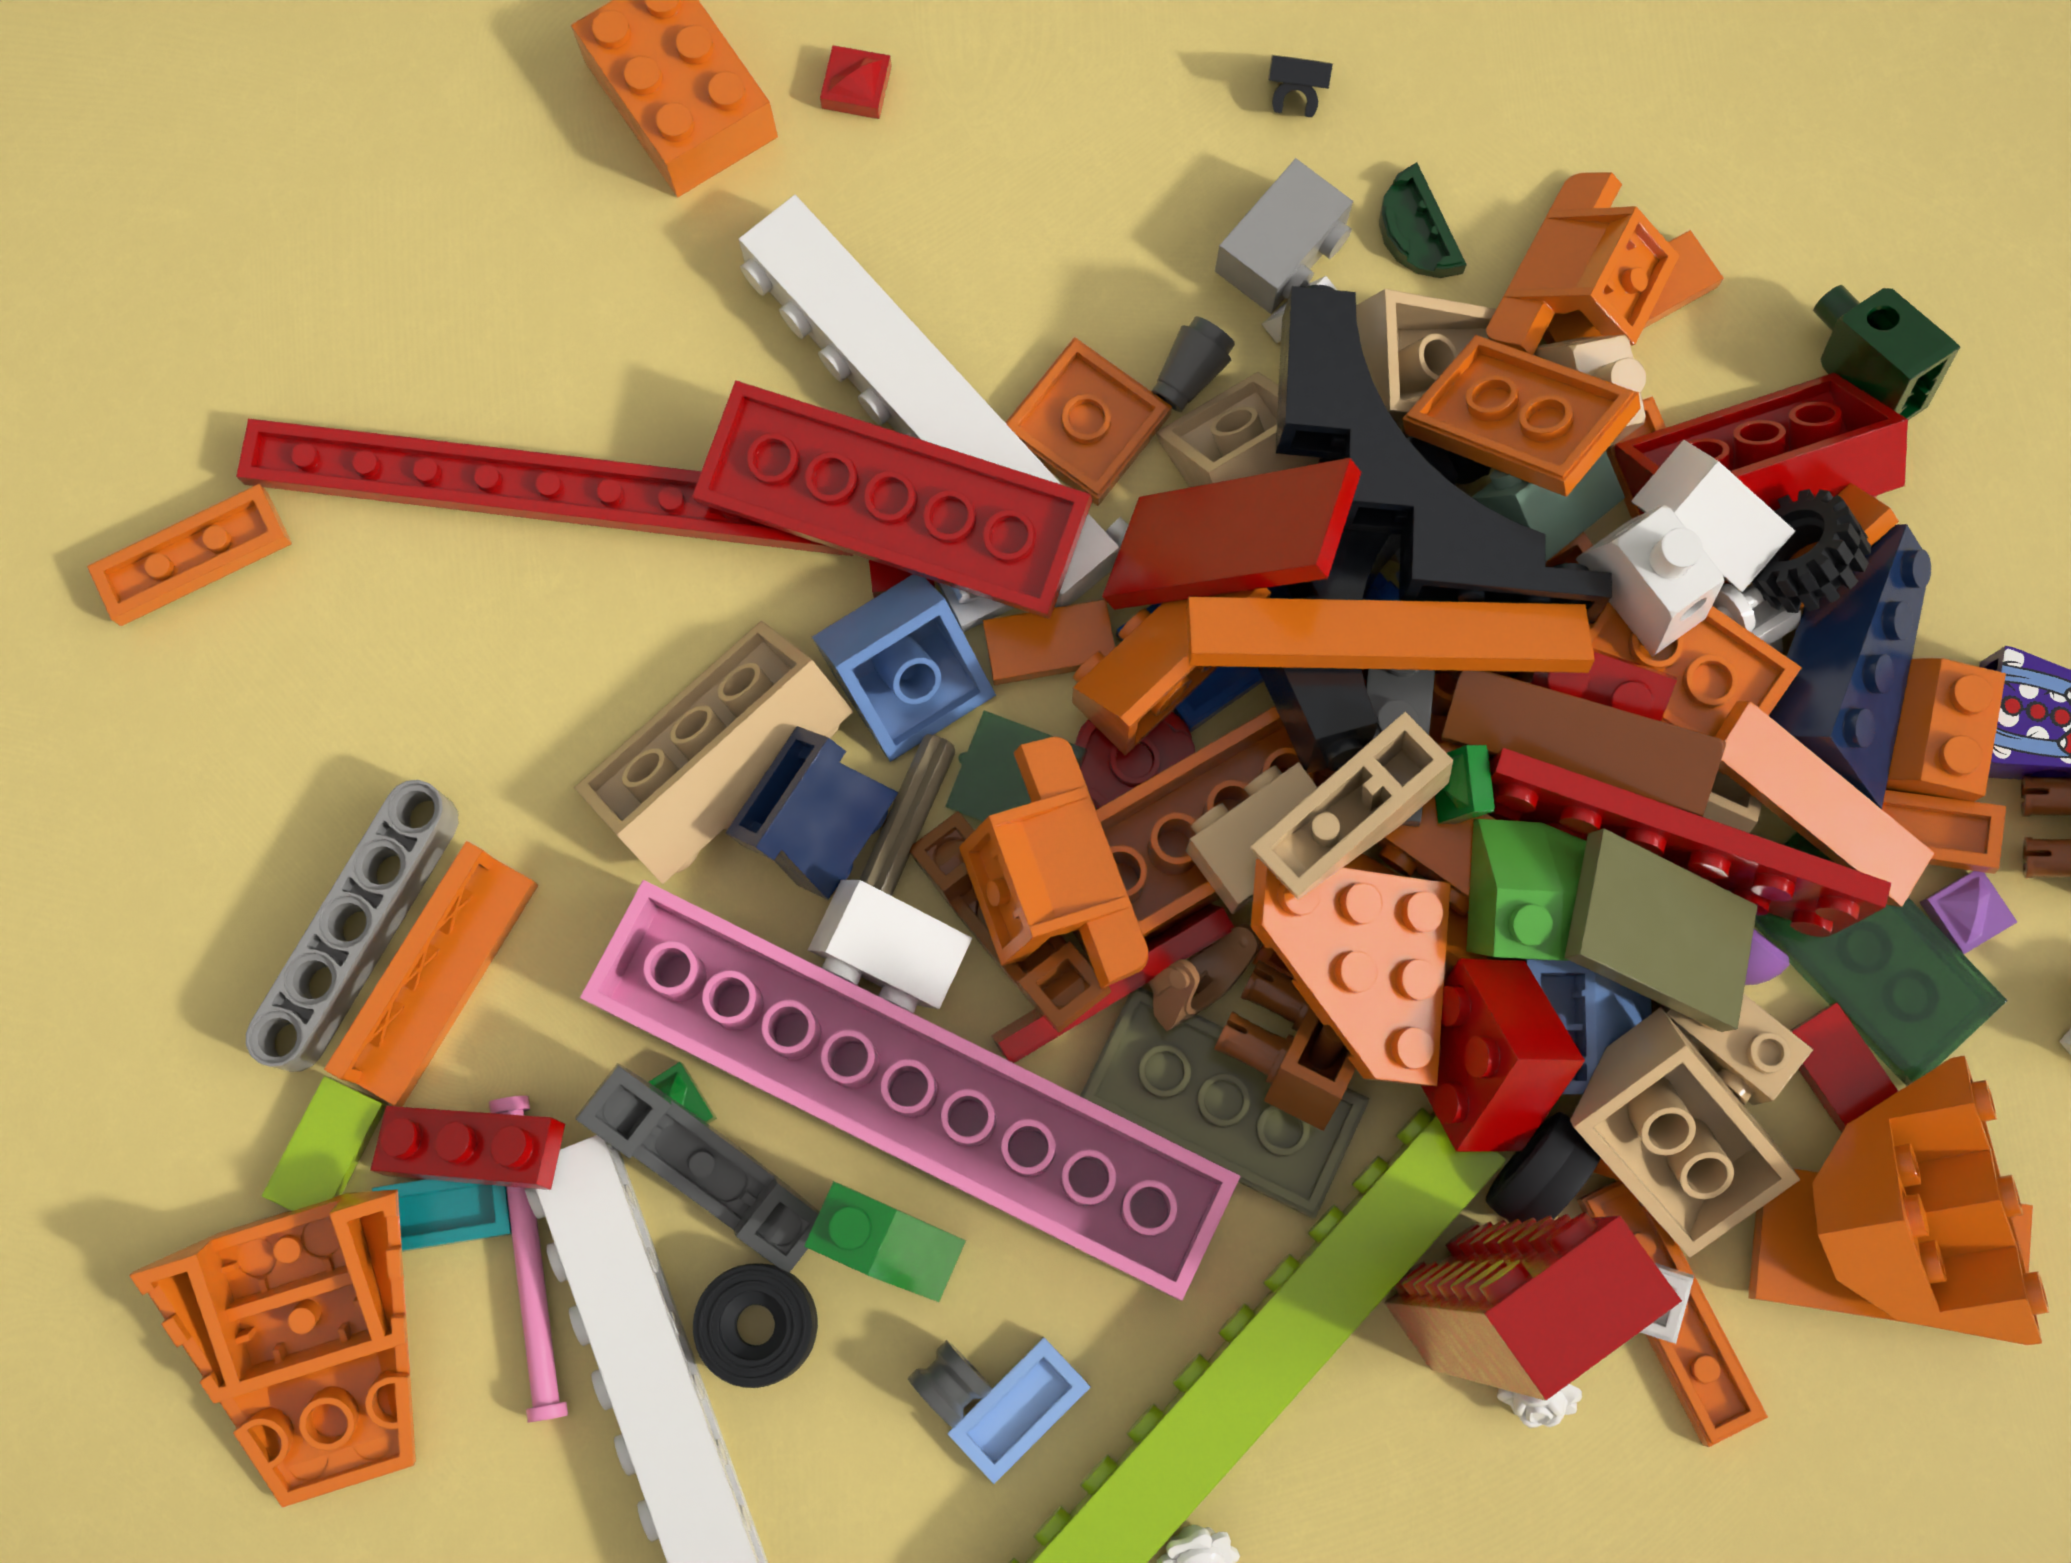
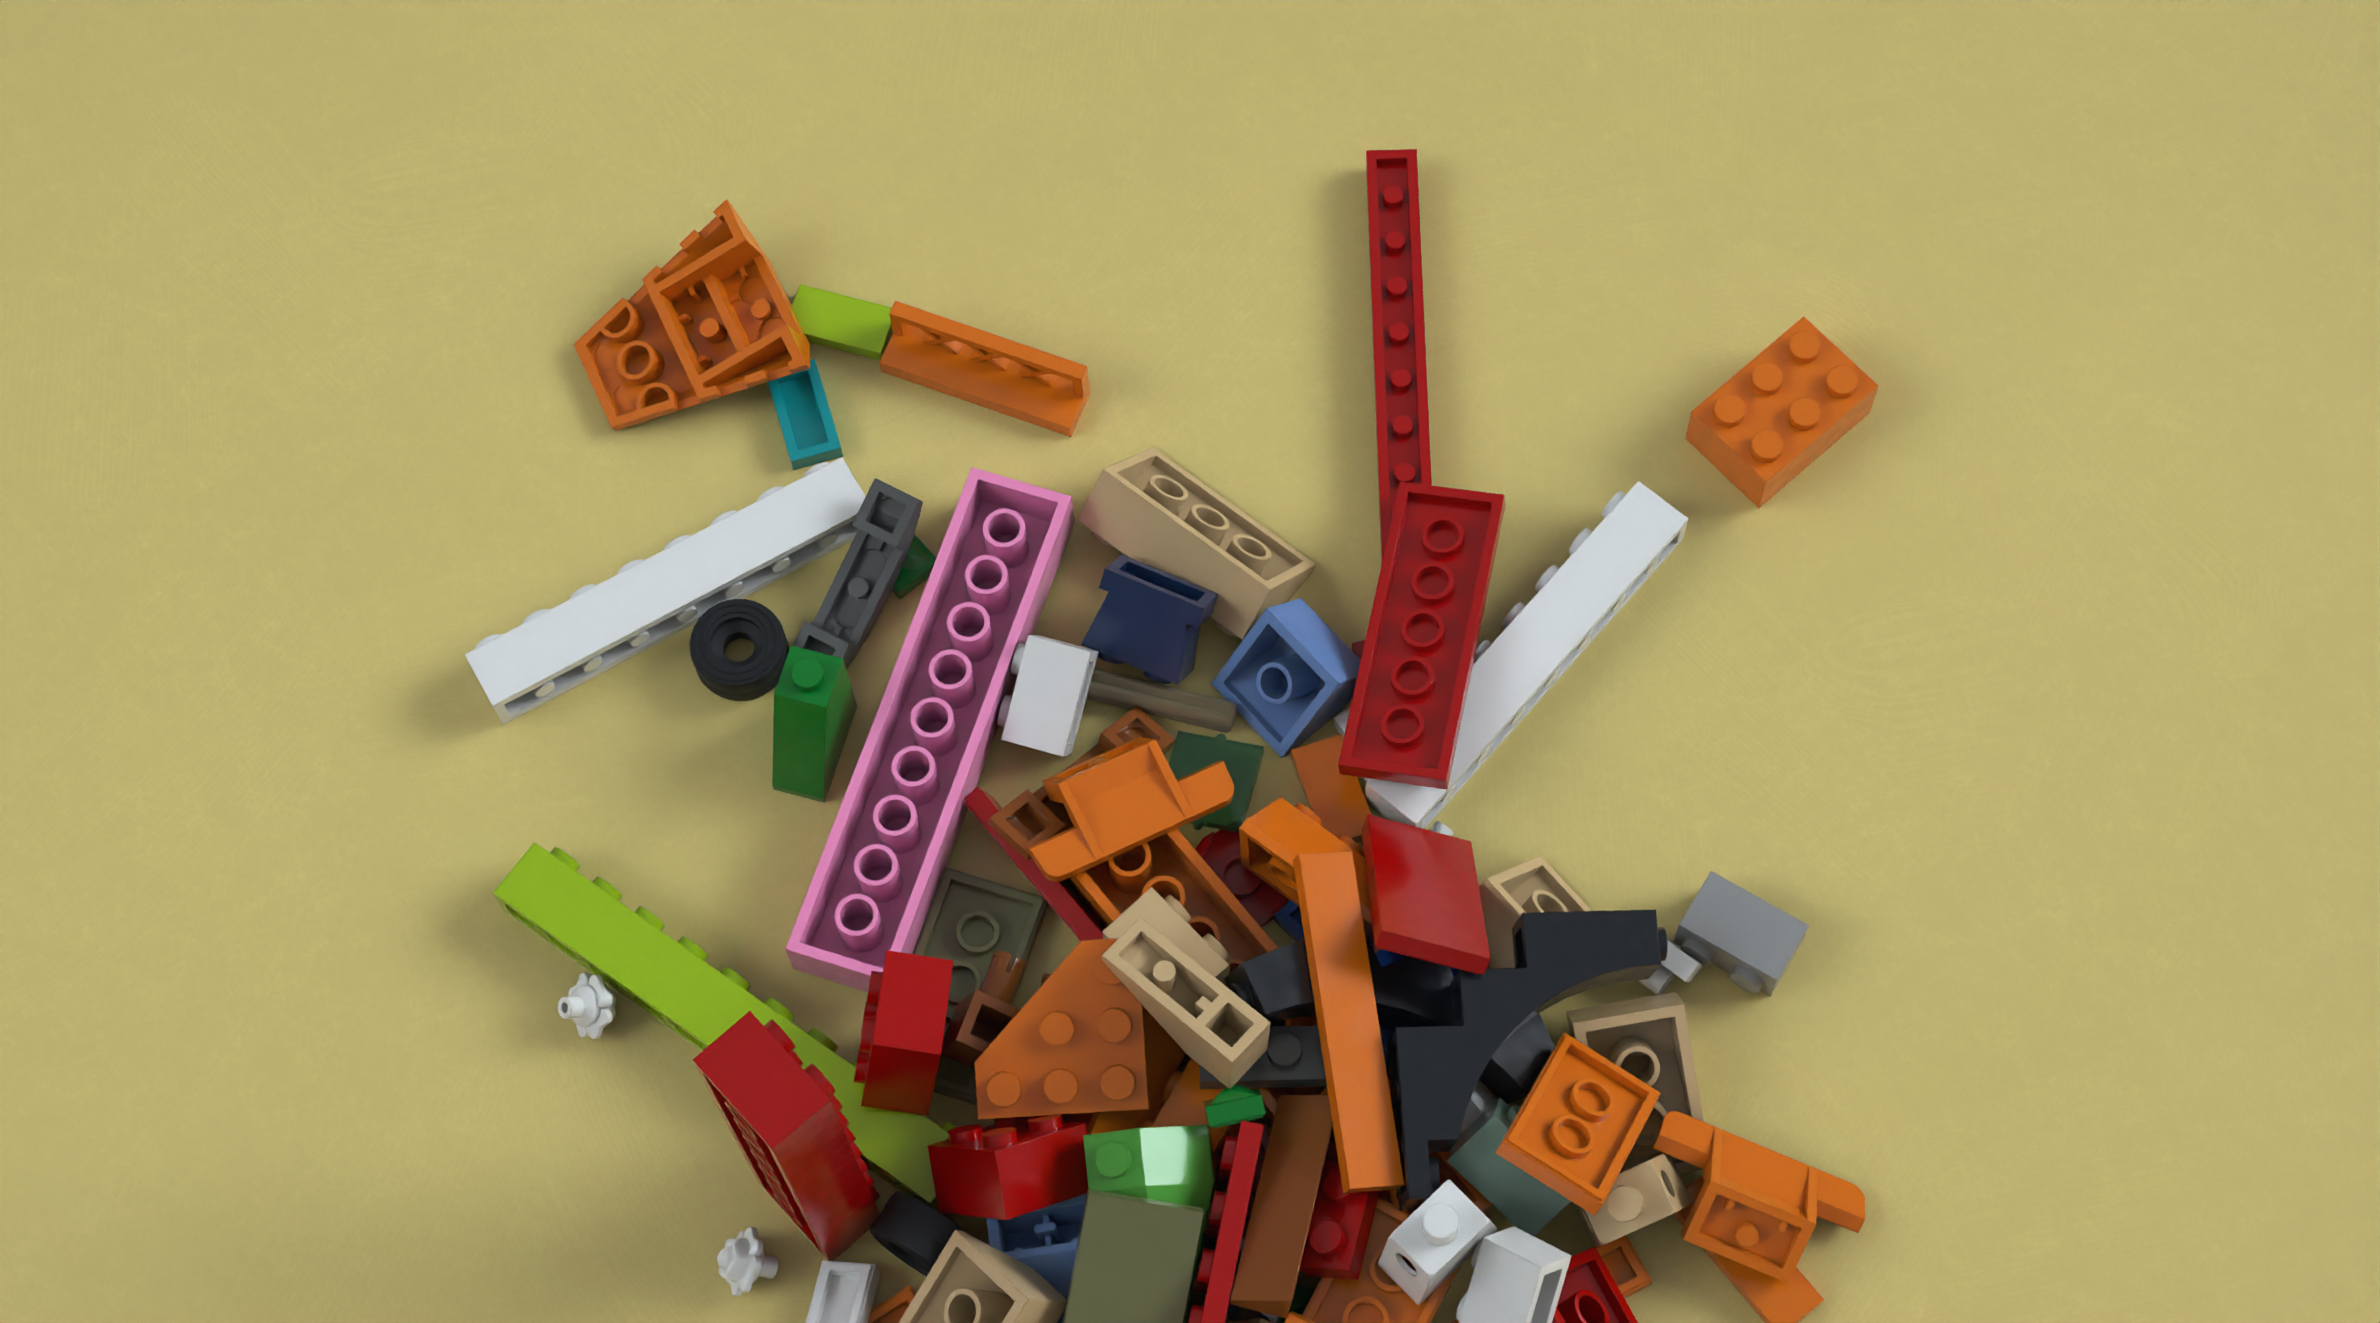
camera: 85 degrees right, 10 degrees down
(189, 555) = (1298, 132): orange plate -> none
(324, 941) = (1028, 325): light grey beam -> none
(468, 1147) = (850, 415): red plate -> none
(532, 1291) = (759, 483): bright pink bar -> none
(855, 82) = (1820, 560): red tile -> none
(950, 1384) = (708, 798): dark grey wheel -> none
(1019, 1410) = (694, 858): light blue tile -> none
(1088, 420) = (1539, 796): orange tile -> none
(1193, 362) = (1606, 873): dark grey cone -> none
(1208, 973) = (1048, 927): medium nougat helmet -> none
(1301, 76) = (1905, 928): black tile -> none
(1316, 1160) = (903, 1032): none -> red brick
(1416, 228) = (1781, 1054): dark green tile -> none

